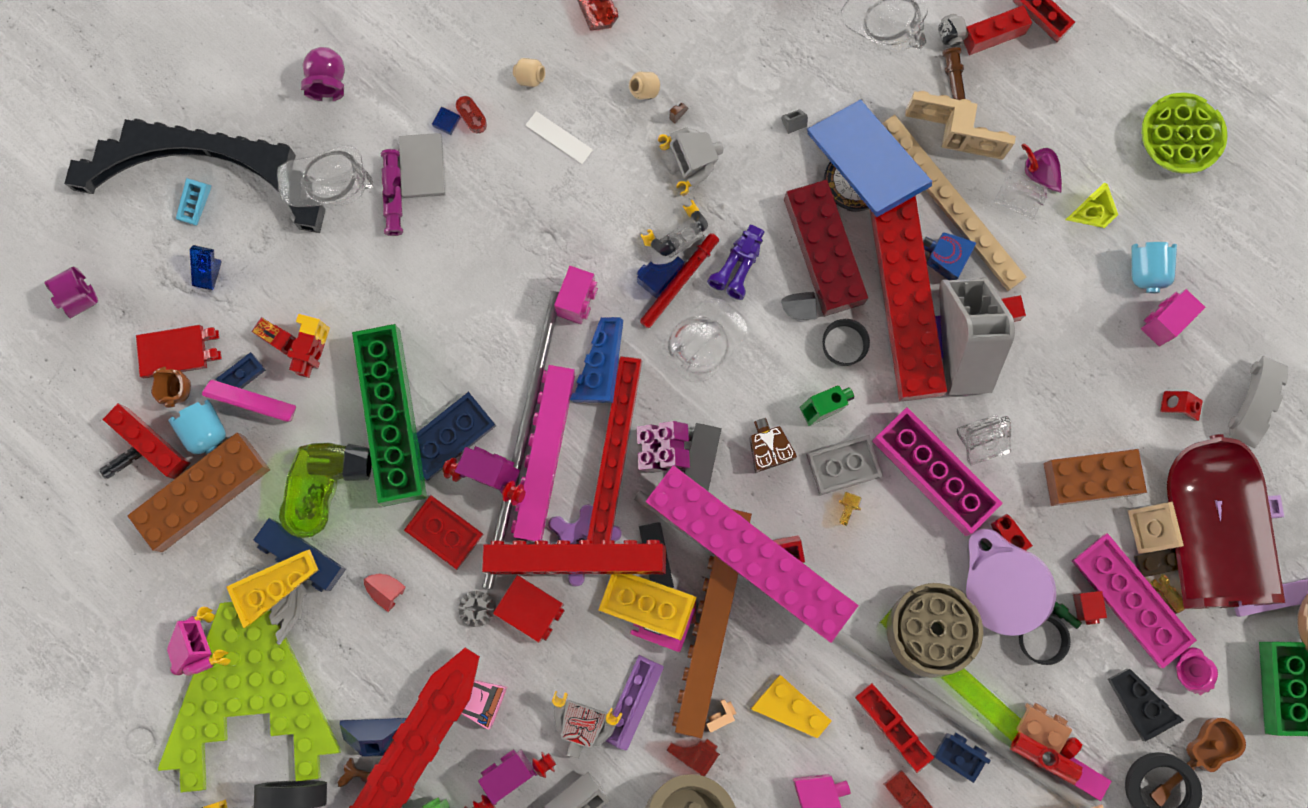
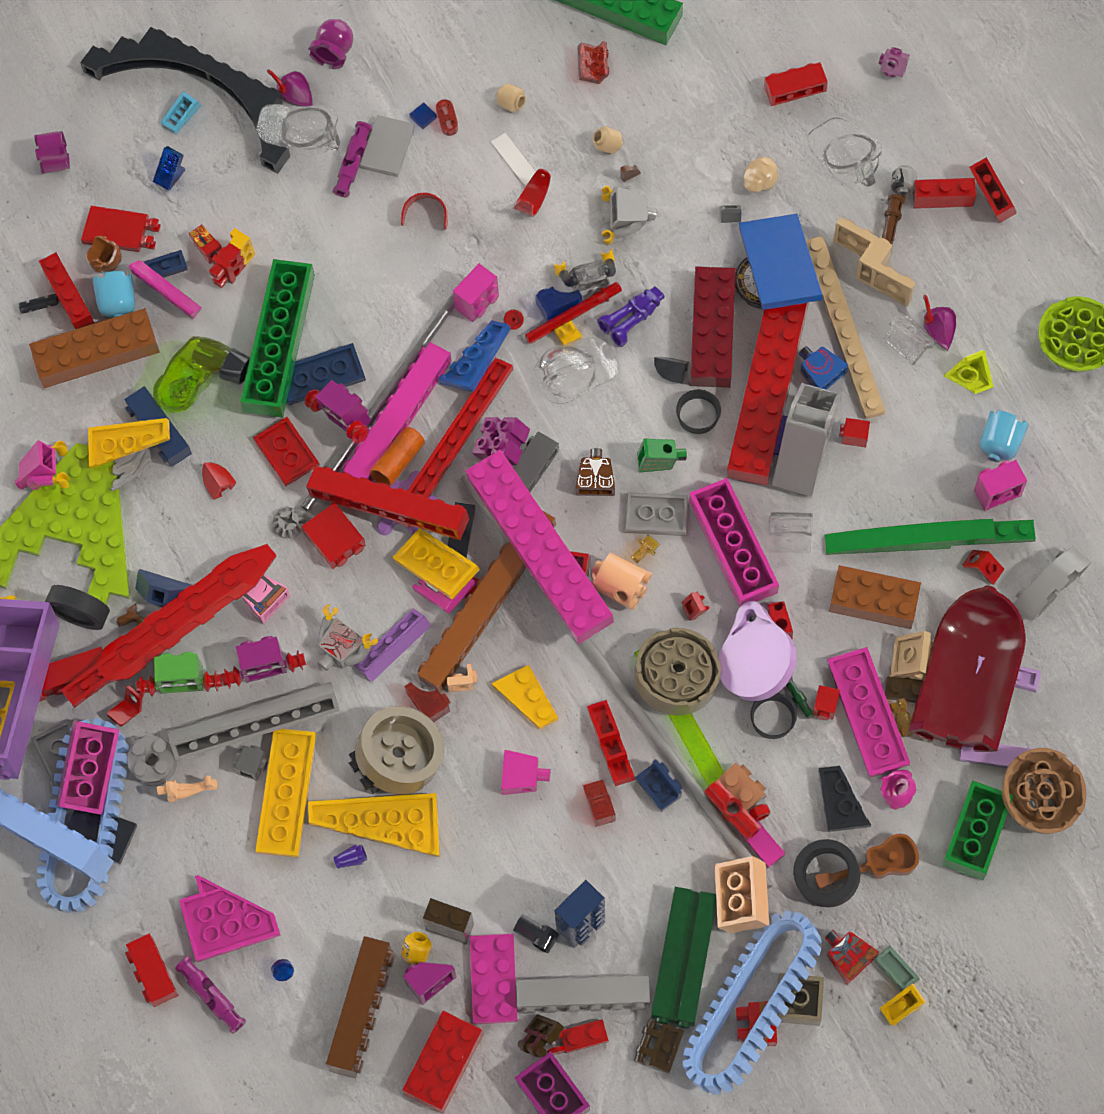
camera: 25 degrees right, 10 degrees down
(302, 136) = (293, 88): none -> magenta piece
(473, 212) = (414, 198): none -> red piece
(562, 506) = (397, 456): none -> orange piece
(590, 167) = (534, 193): none -> red piece
(622, 308) = (513, 318): none -> red tile
(682, 304) = (567, 333): none -> yellow tile
(810, 71) = (760, 175): none -> tan hair
(840, 553) = (620, 580): none -> light nougat cylinder
(921, 551) = (694, 606): none -> red tile
(1120, 394) = (930, 536): none -> green slope

